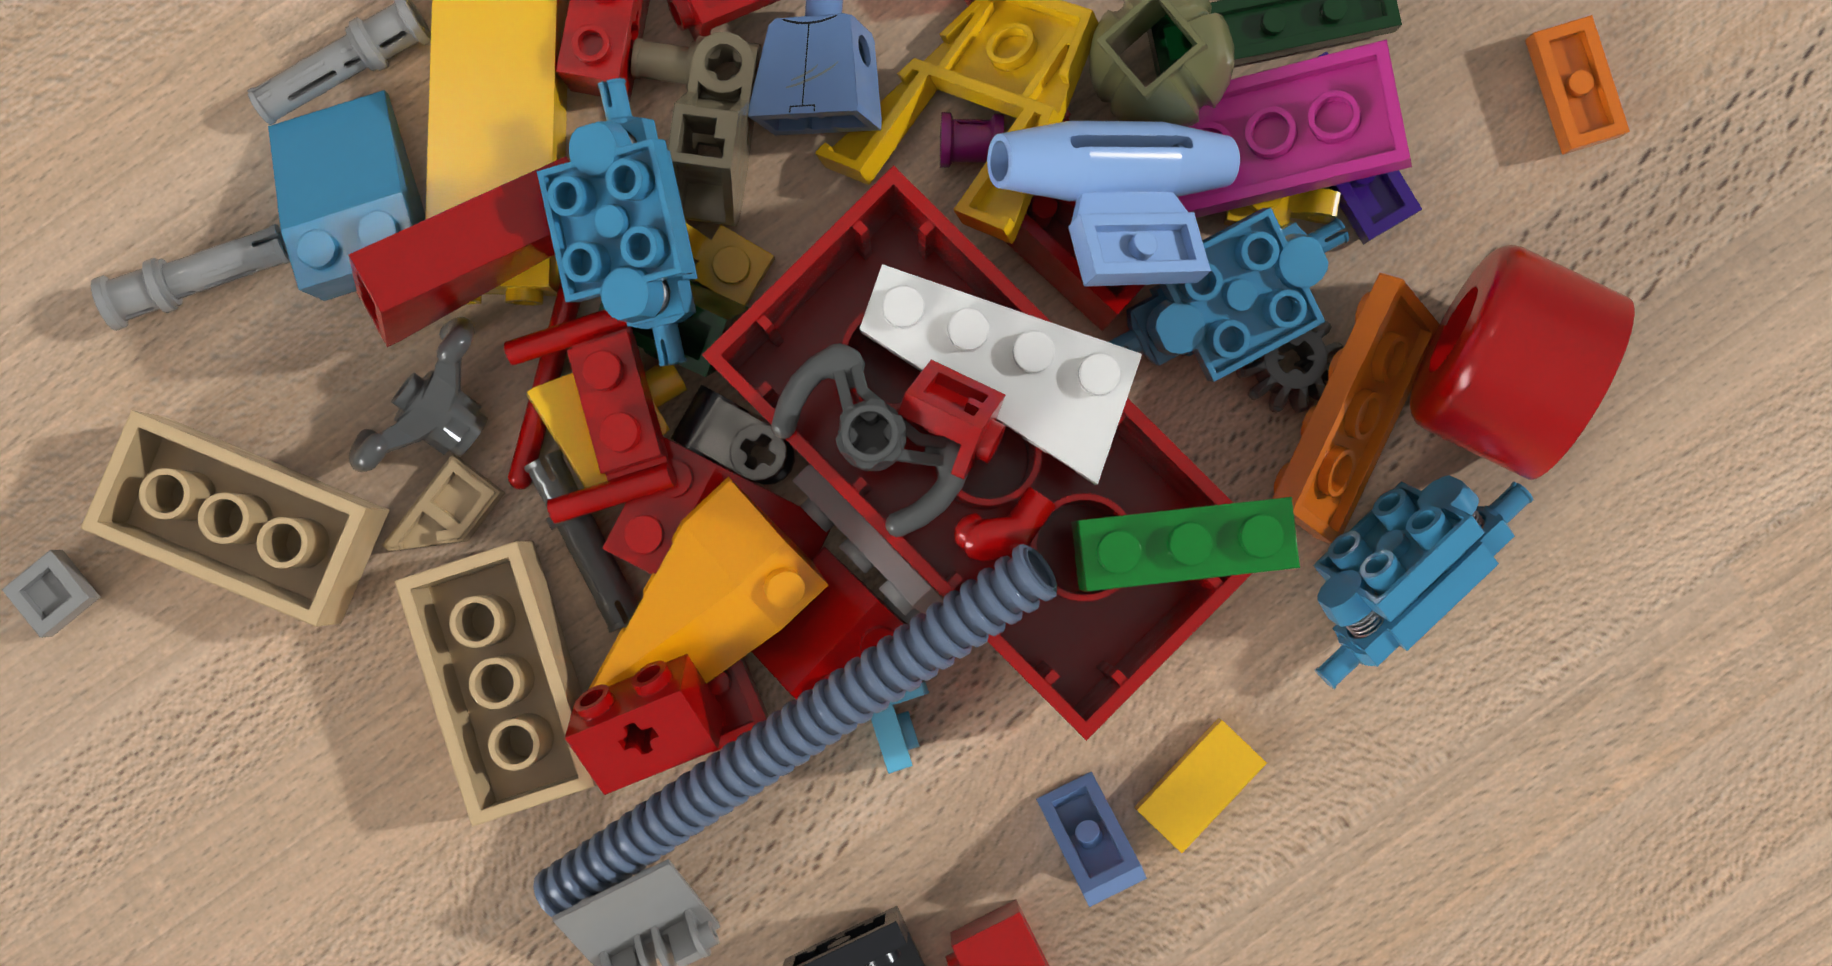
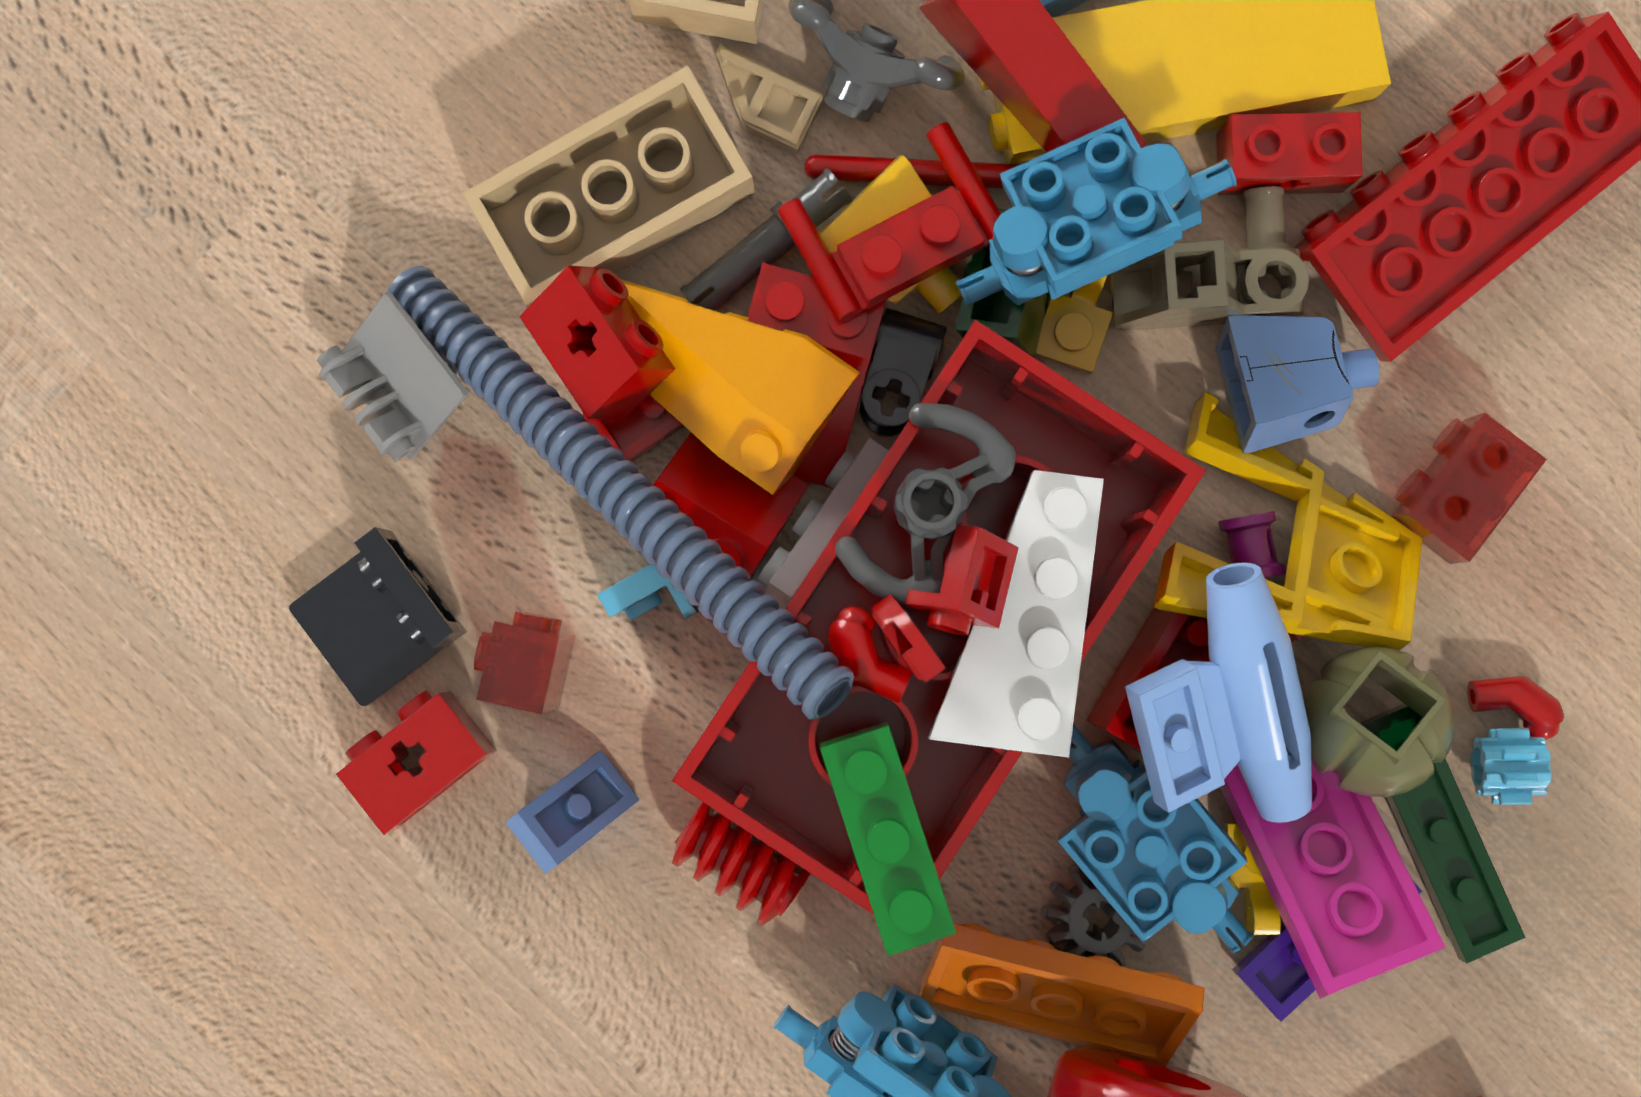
camera: 75 degrees right, 0 degrees up
(940, 857) = (524, 663): none -> clear red brick
(997, 485) = (907, 639): none -> red tile
(1173, 689) = (739, 863): none -> red piece
(1200, 785) = (648, 912): yellow tile -> none

